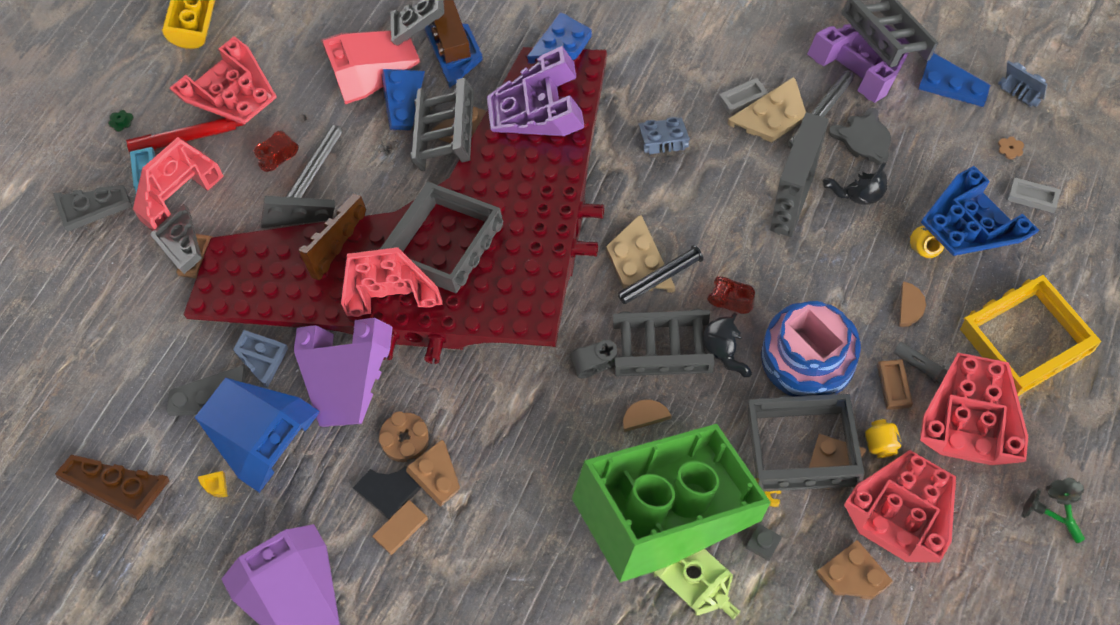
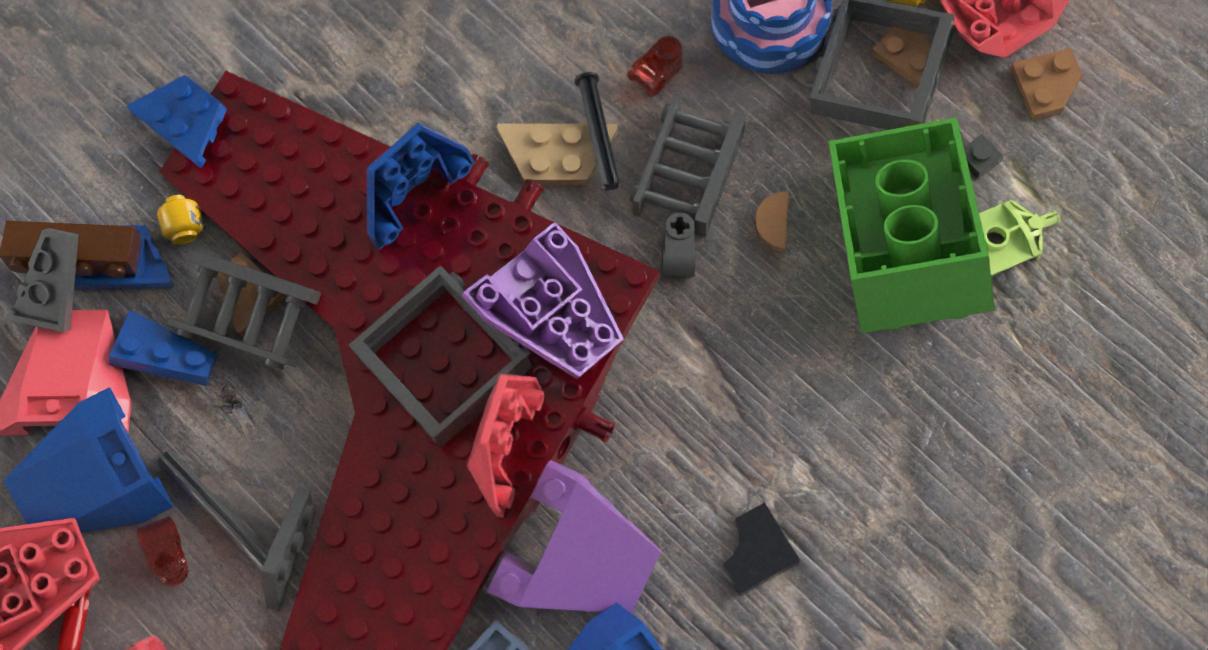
camera: 70 degrees left, 5 degrees up
(301, 89) = (88, 472): none -> blue wedge
(329, 242) = (381, 502): reddish brown wing -> none
(400, 527) = (815, 552): medium nougat tile -> none
(408, 449) = (691, 490): medium nougat plate -> none
(435, 473) = (760, 484): medium nougat wing -> none
(492, 278) = (549, 303): none -> medium lavender wedge
(493, 69) = (180, 220): none -> yellow head
(533, 102) = (273, 189): medium lavender wedge -> none
(547, 152) = (404, 167): none -> blue wedge
(664, 131) = (389, 54): sand blue hinge -> none
(720, 341) = (719, 96): black piece -> none

